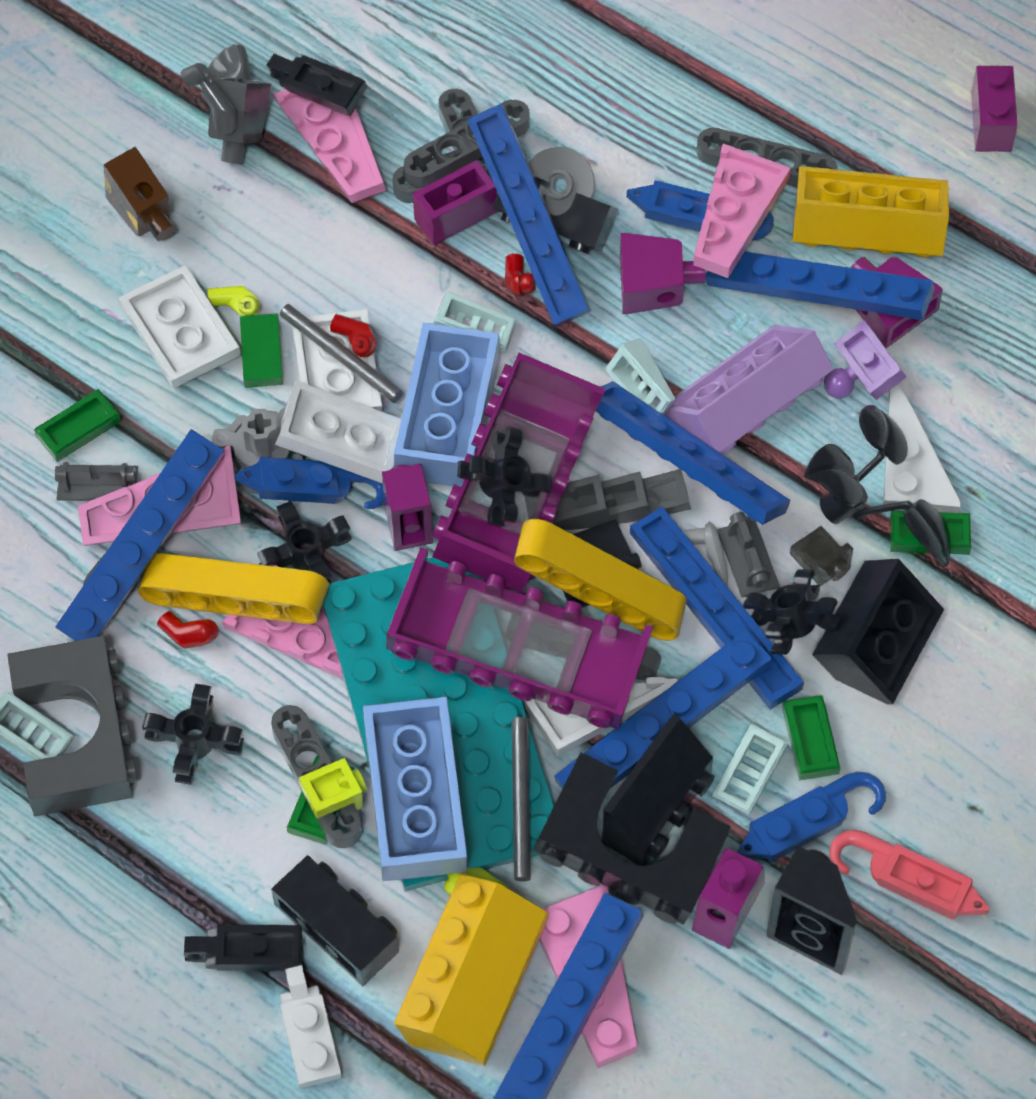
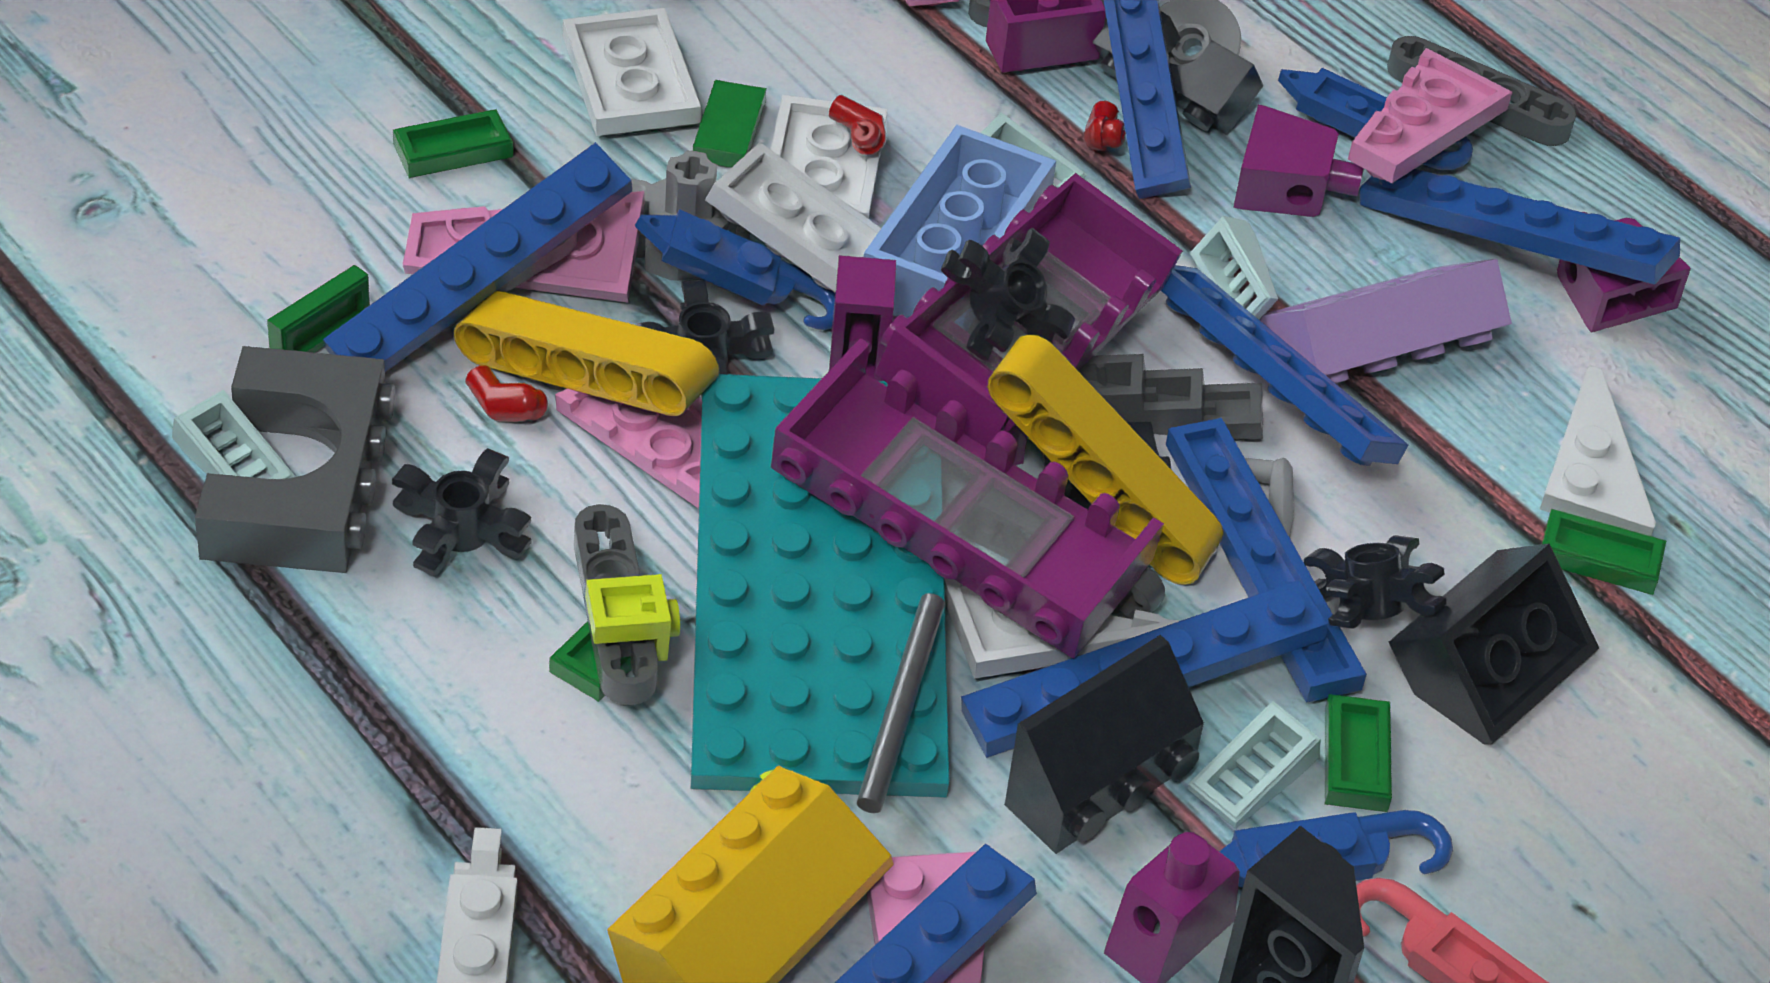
camera: 10 degrees right, 15 degrees down
(44, 607) = (320, 312): none -> green tile
(92, 481) = (429, 191): dark grey hinge -> none
(235, 297) = (717, 61): neon yellow arm -> none
(247, 947) = (429, 788): black hinge -> none
(336, 919) = (575, 788): black brick -> none
(341, 353) = (834, 142): flat silver bar -> none
(415, 789) = (747, 637): light blue brick -> none
(574, 841) = (1075, 870): black arch -> none
(747, 556) = (1326, 503): dark grey hinge -> none
(823, 555) = (1440, 535): clear smoke bracket -> none
(846, 496) = (1495, 467): black plant -> none
(867, 361) = (1559, 326): medium lavender plate -> none
(871, 211) = (1608, 170): yellow slope -> none

